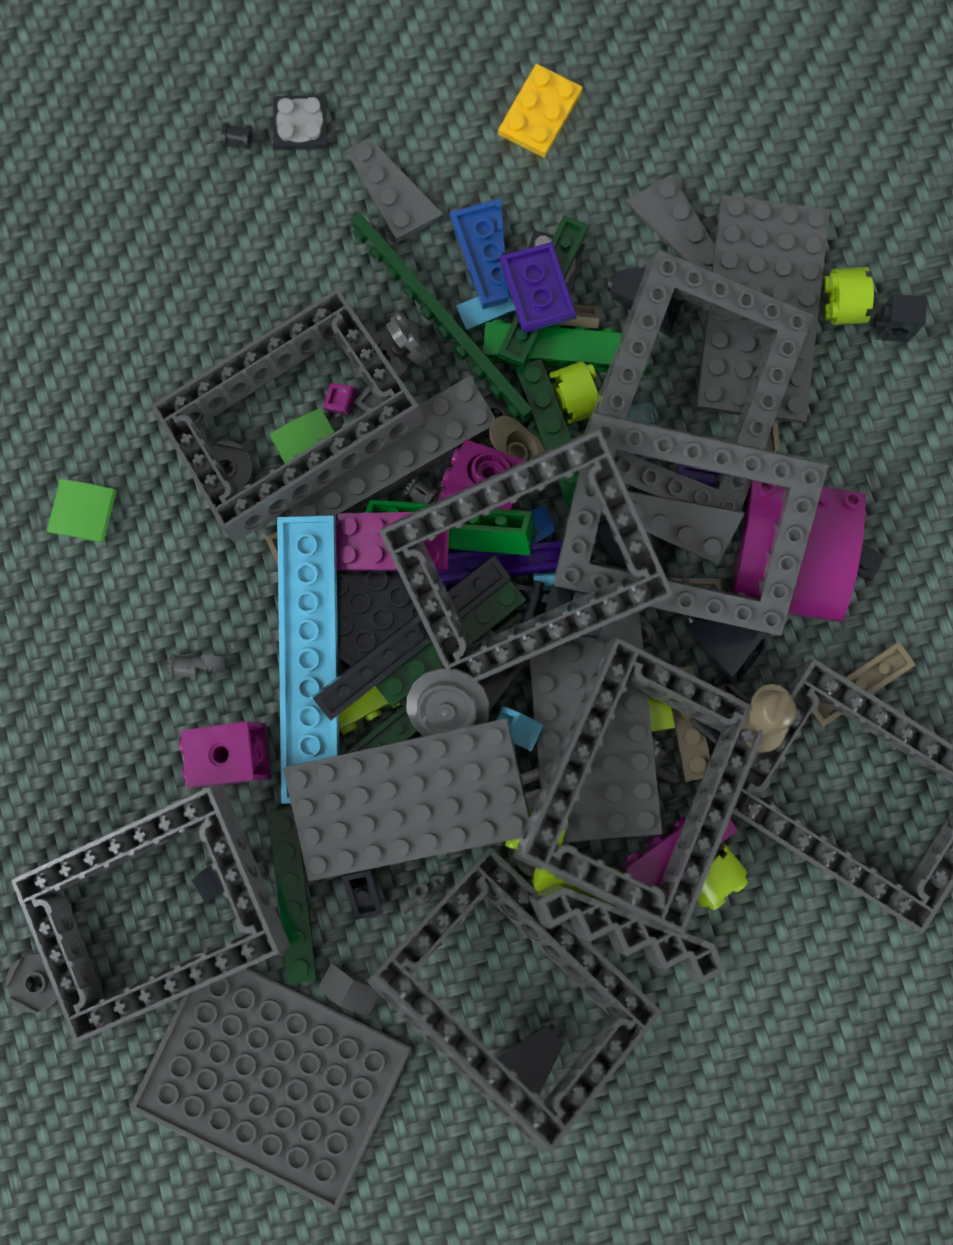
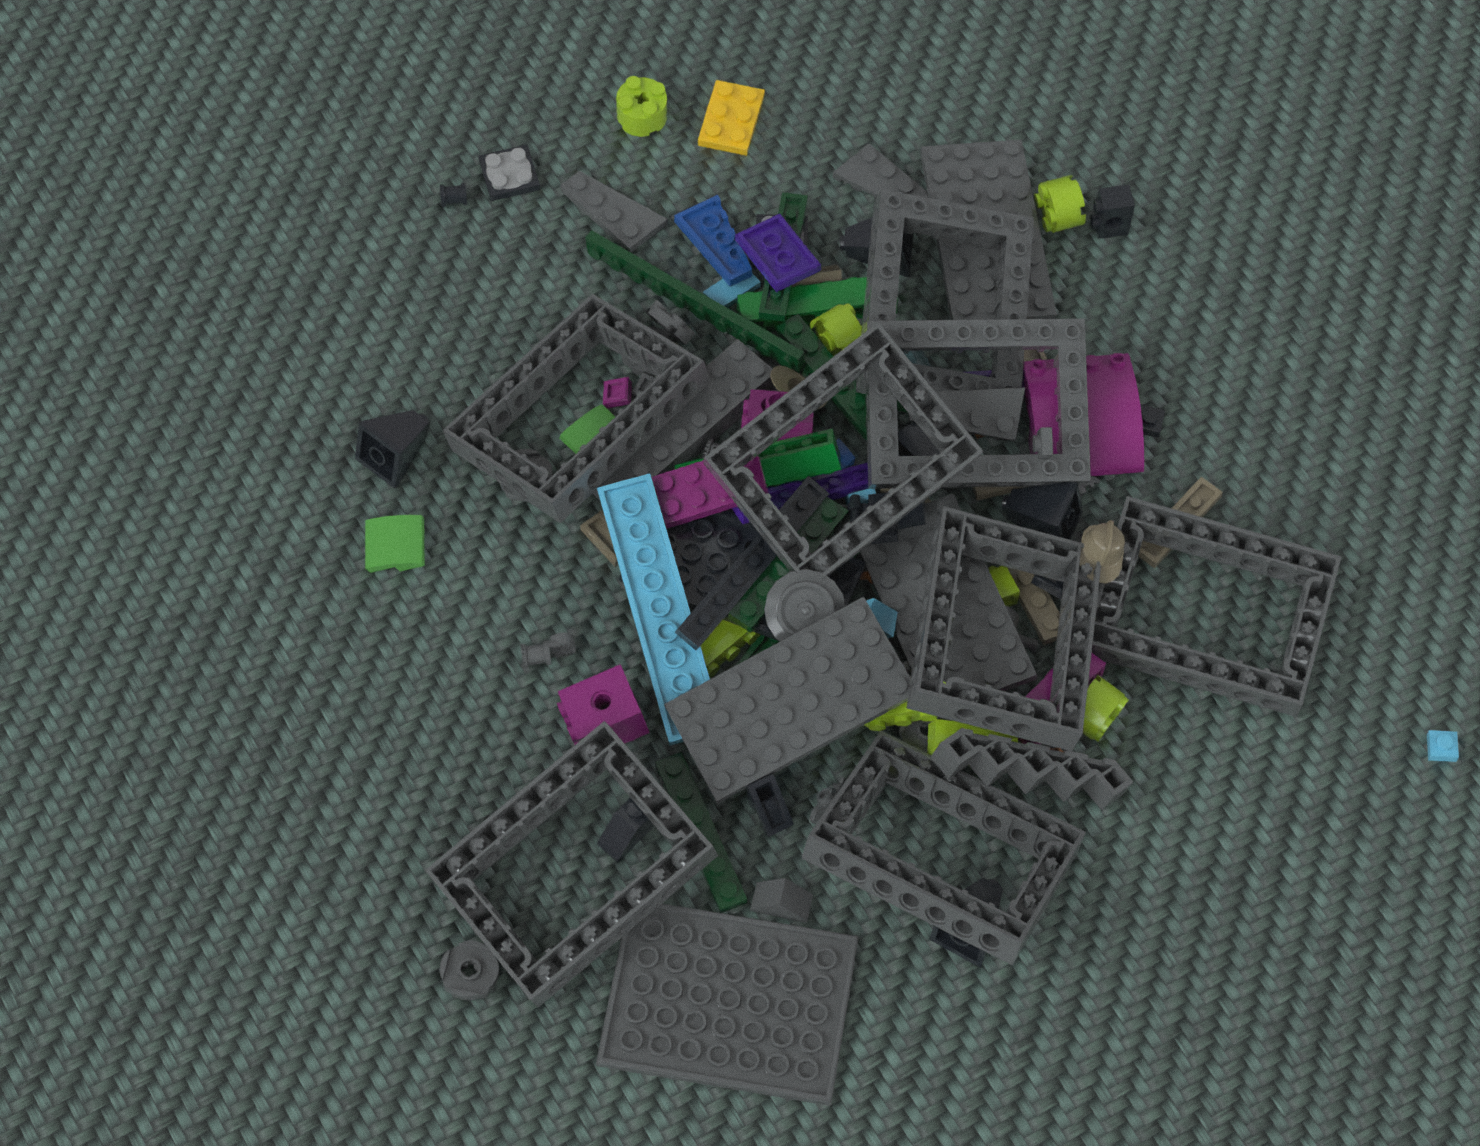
camera: 25 degrees left, 20 degrees down
(105, 402) = (391, 443): none -> black slope
(450, 77) = (641, 106): none -> lime brick
(742, 592) = (1043, 443): none -> dark grey plate

